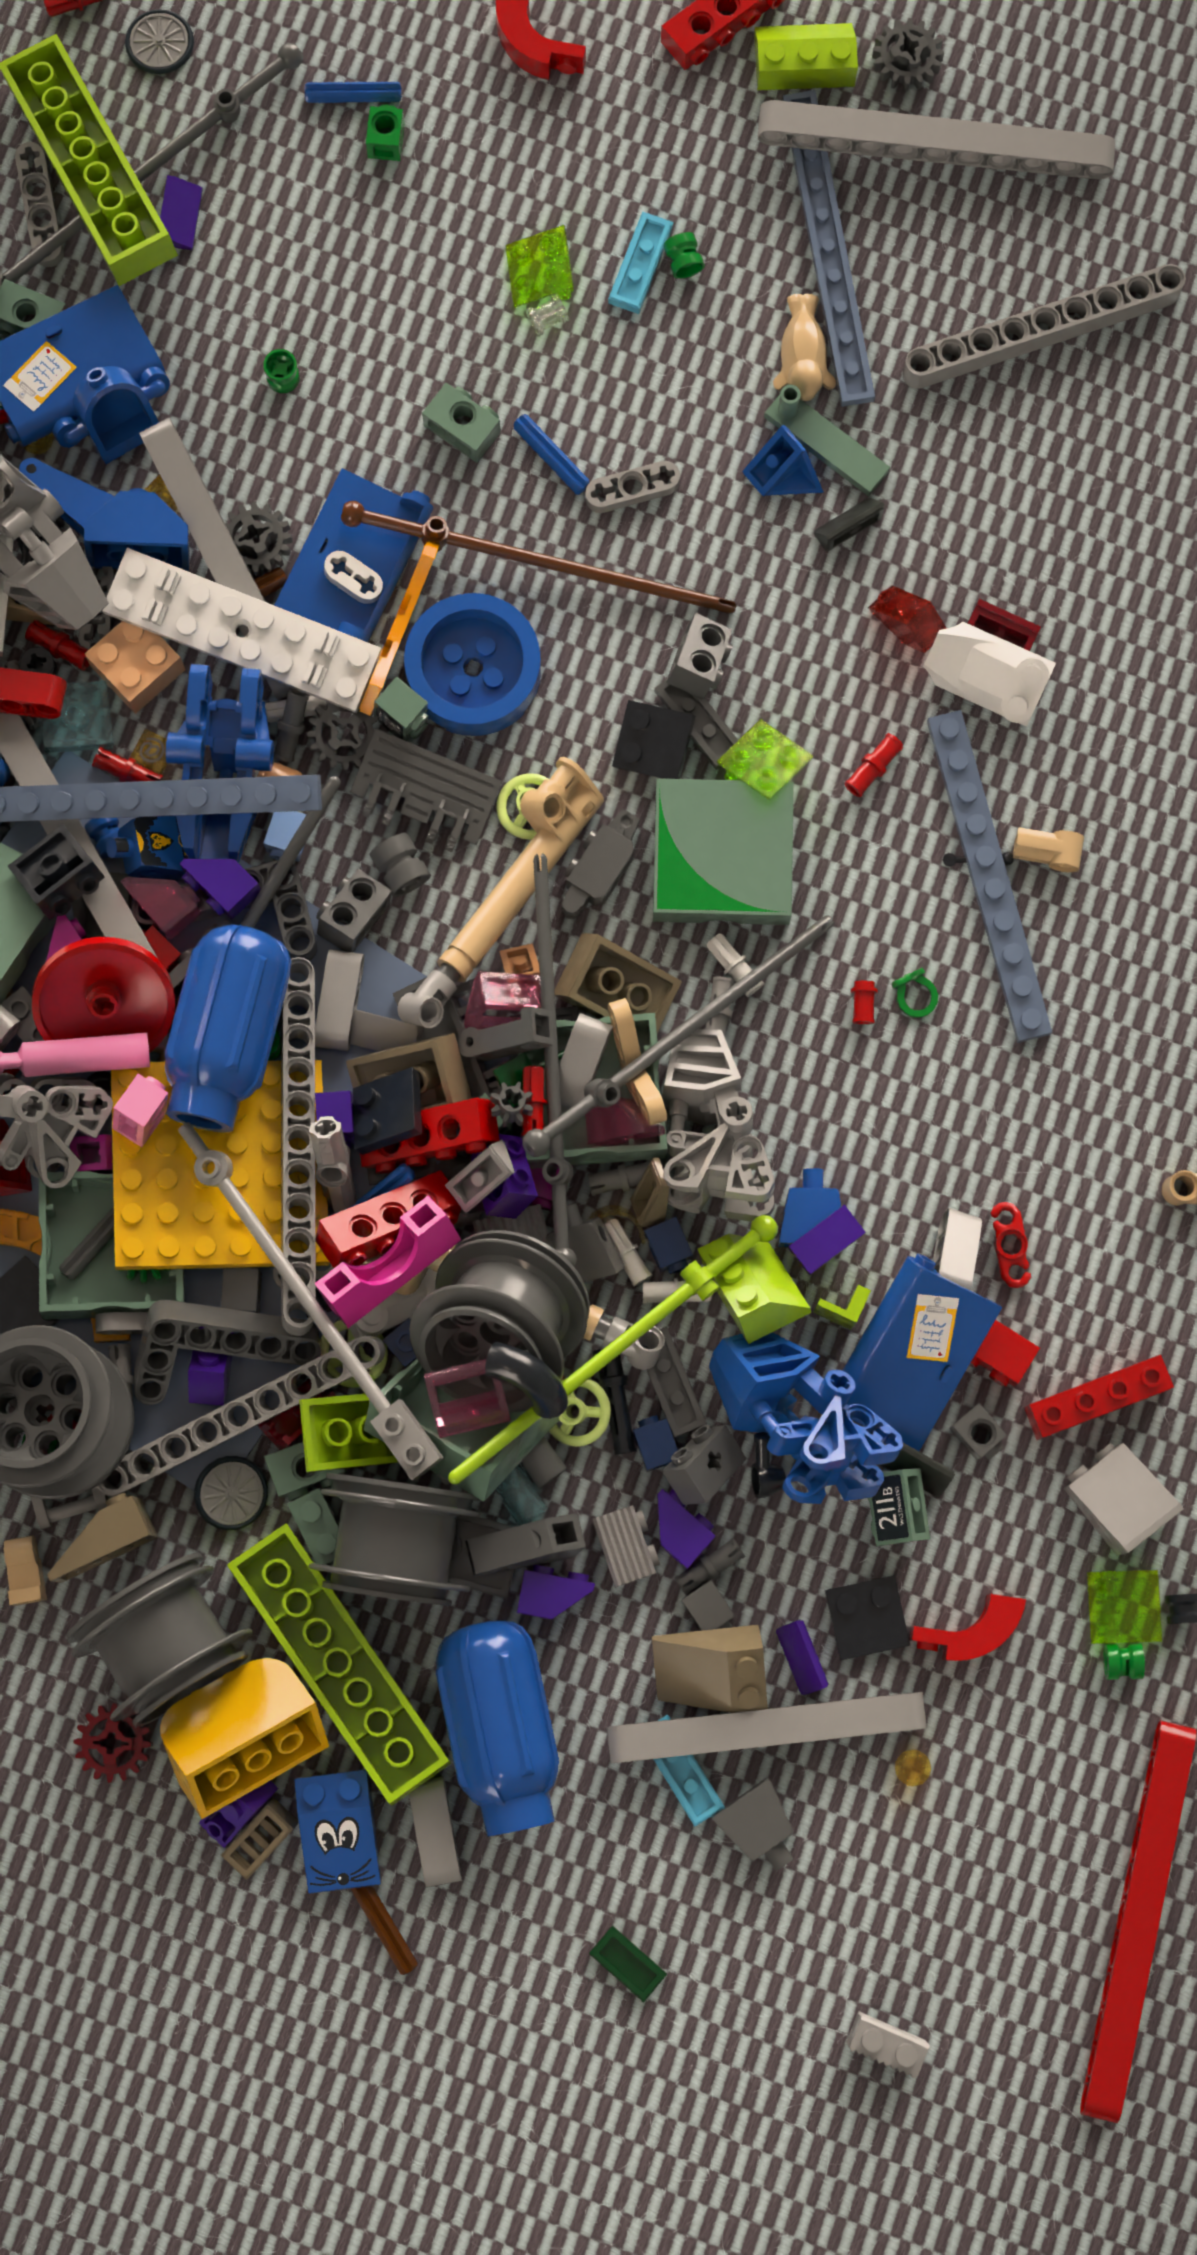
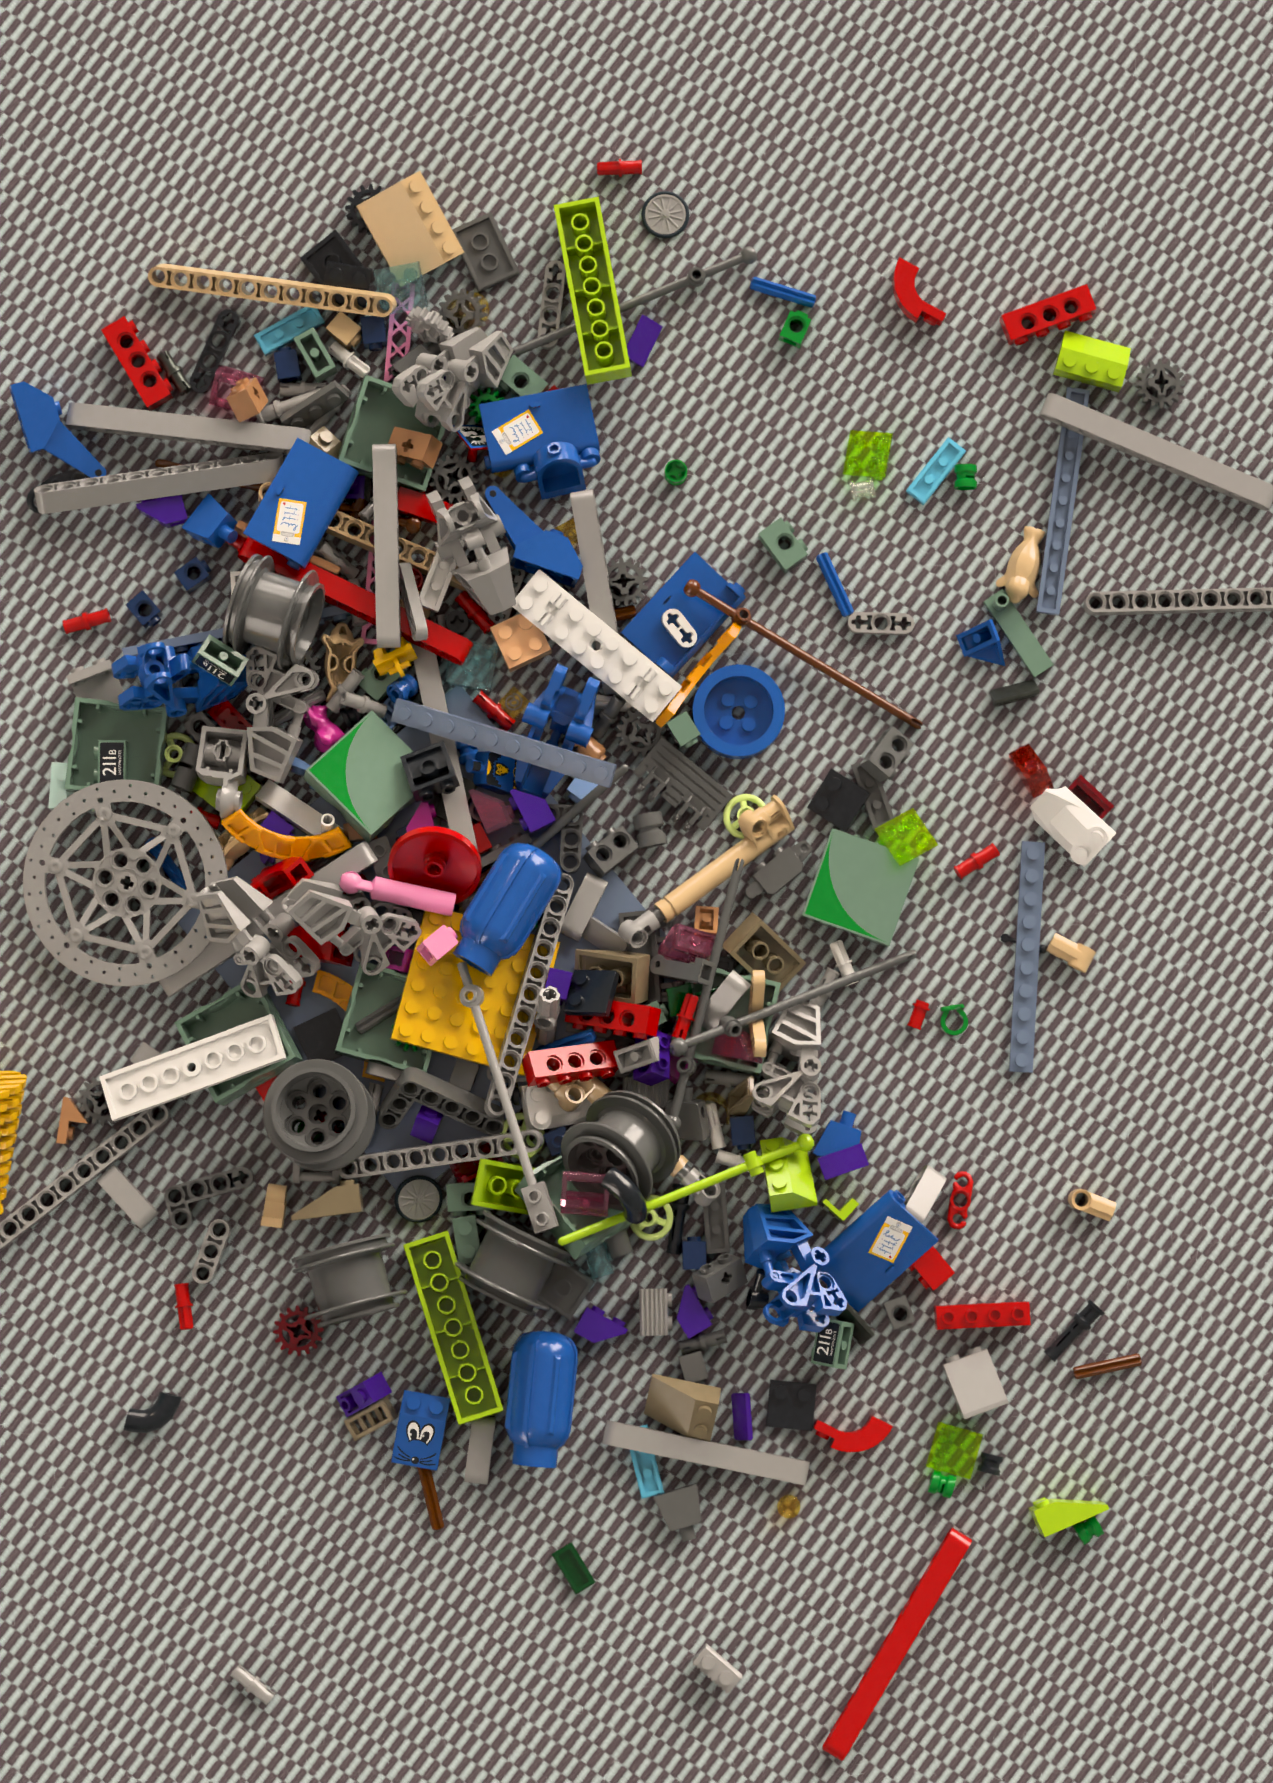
camera: 15 degrees right, 5 degrees up
(240, 1733) = (380, 1351): yellow brick -> none
(422, 1239) = (539, 1102): dark pink arch -> none
(507, 1112) = (667, 1021): dark grey gear -> none
(527, 1545) = (592, 1292): dark grey slope -> none

